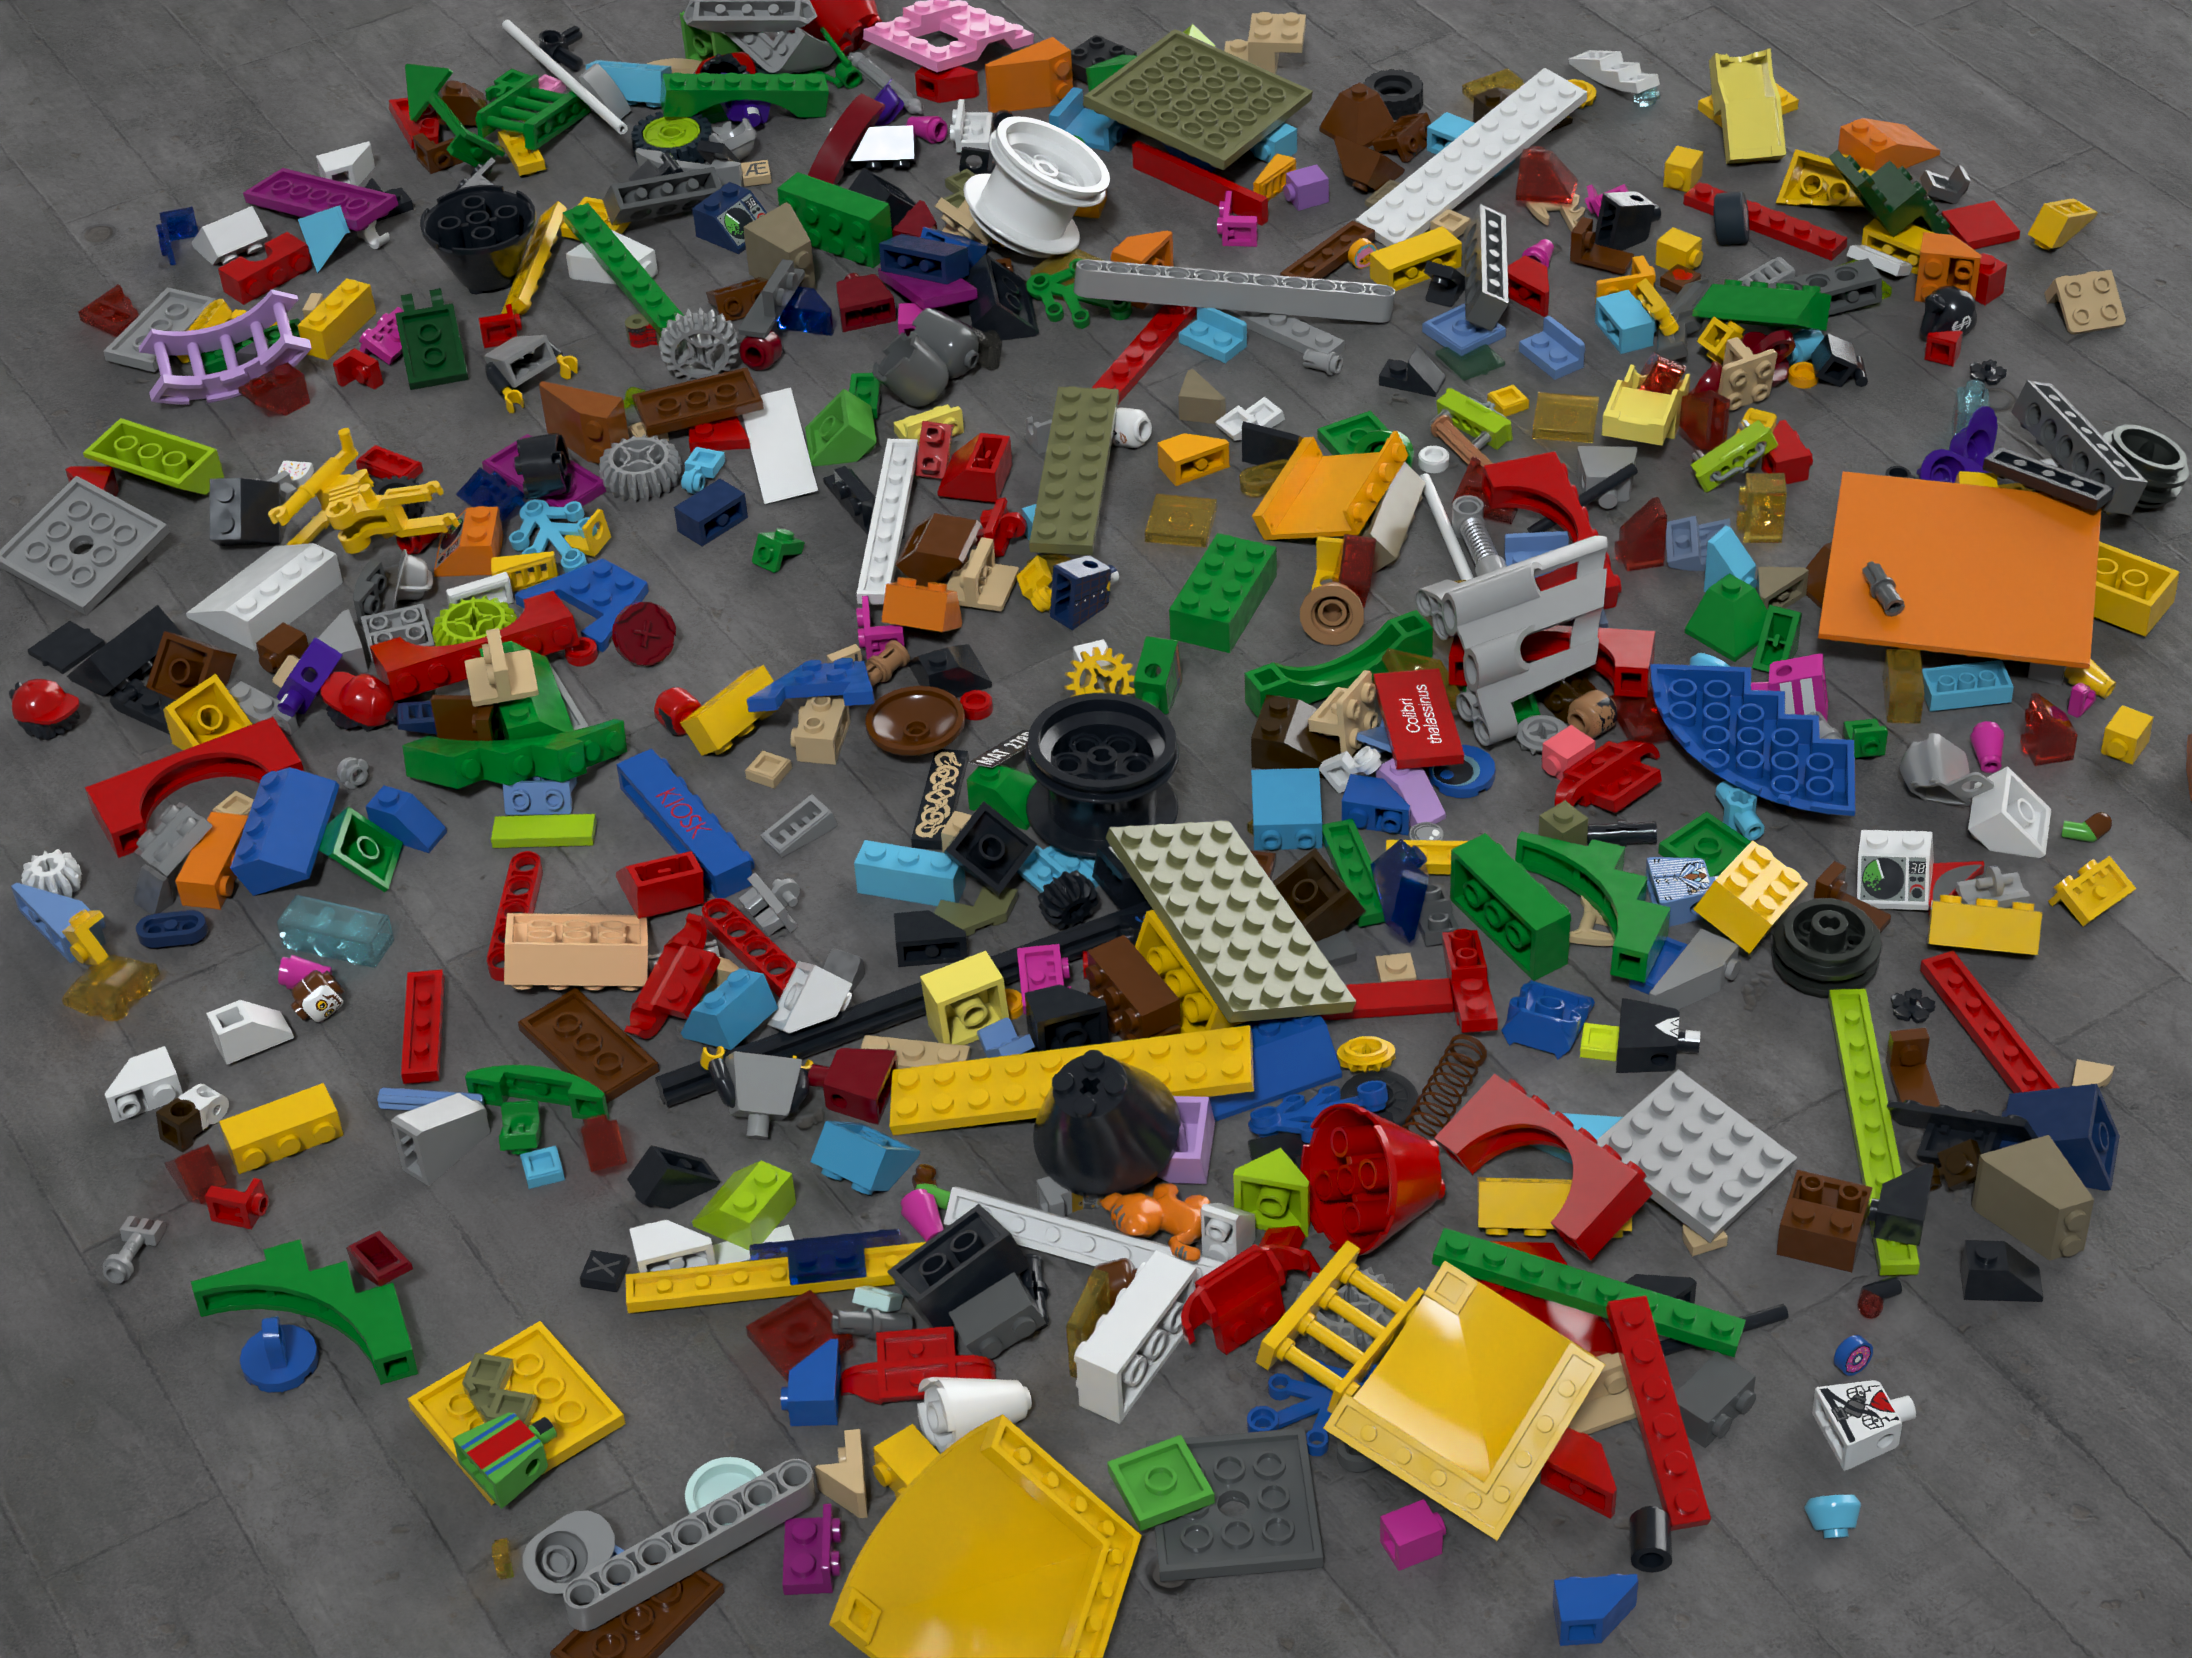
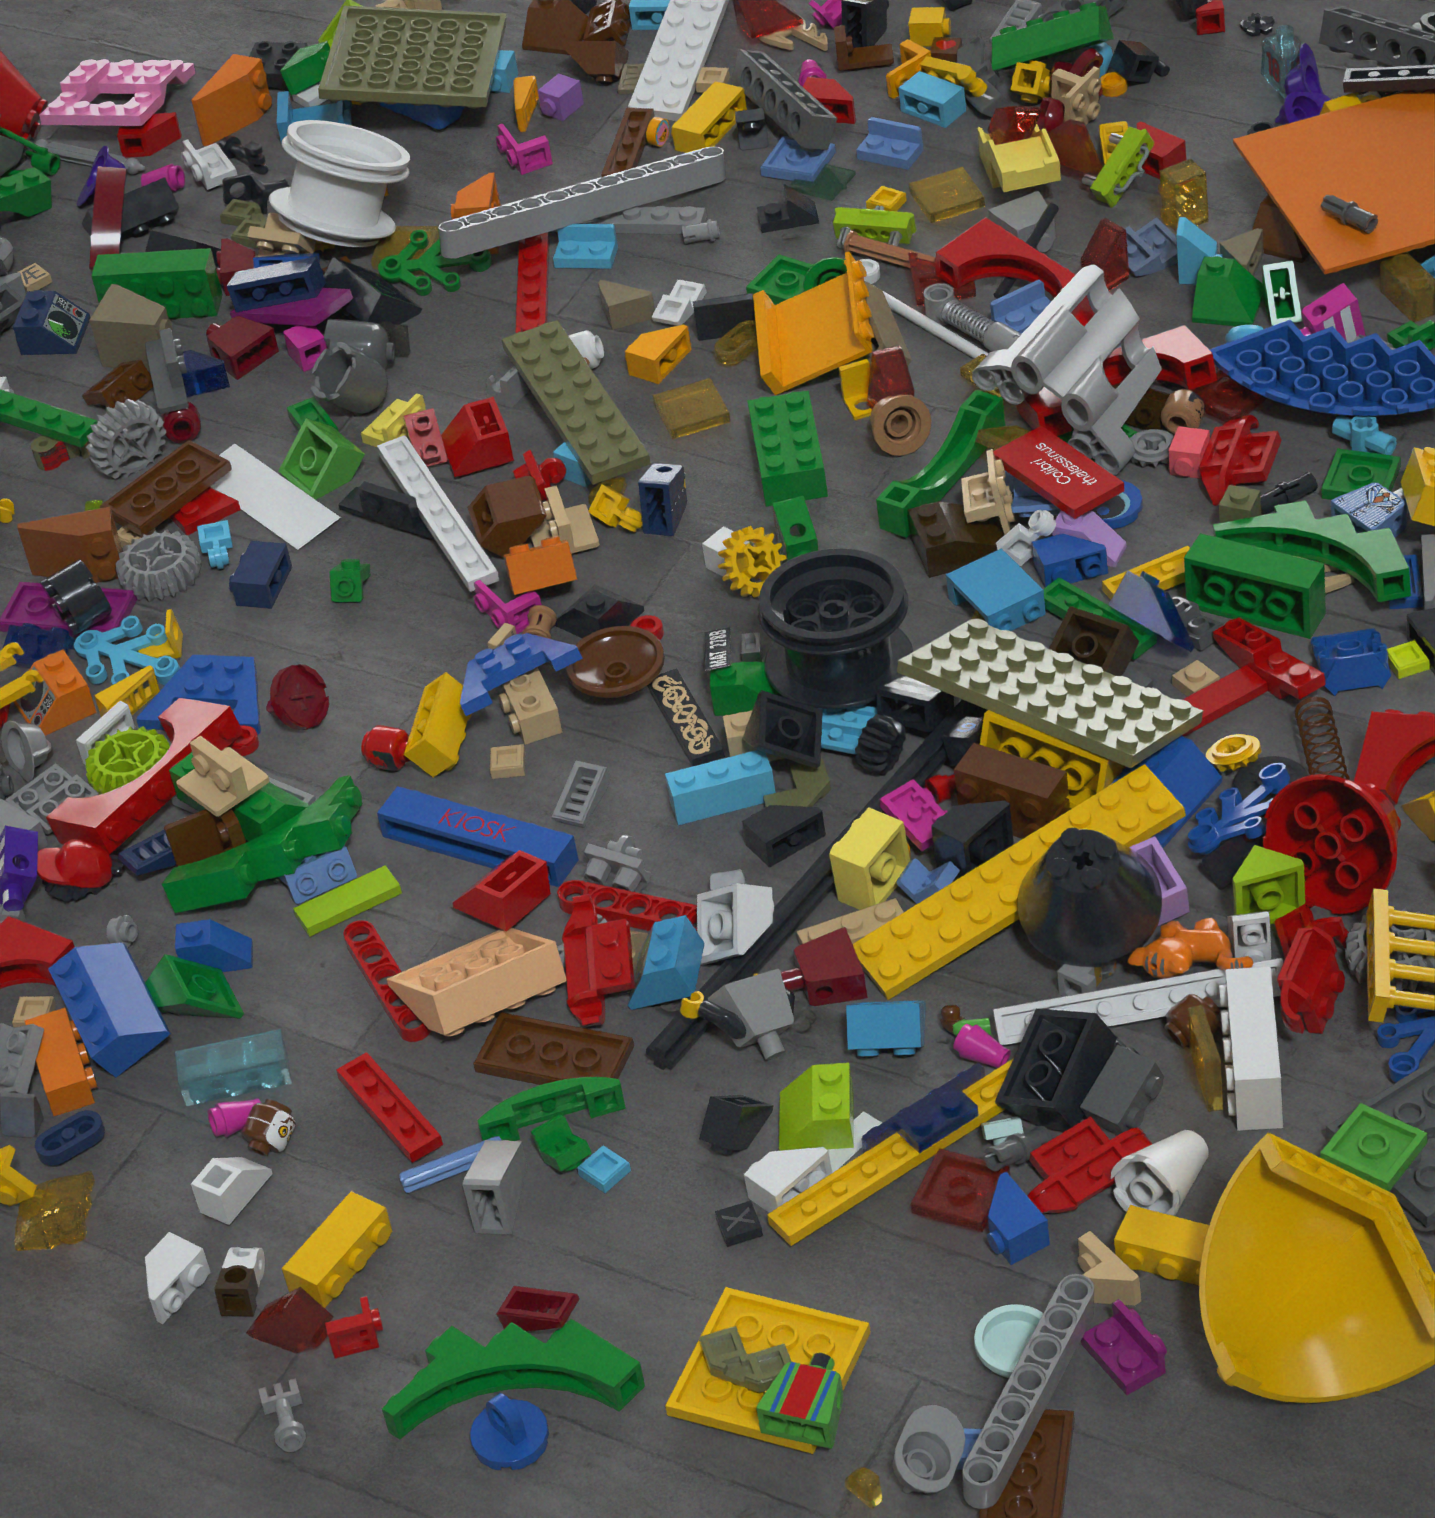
camera: 25 degrees left, 0 degrees up
(601, 1142) = (646, 1121): clear red slope -> none
(1198, 181) = (456, 128): red tile -> none
(1426, 831) = (1125, 562): light grey tile -> none

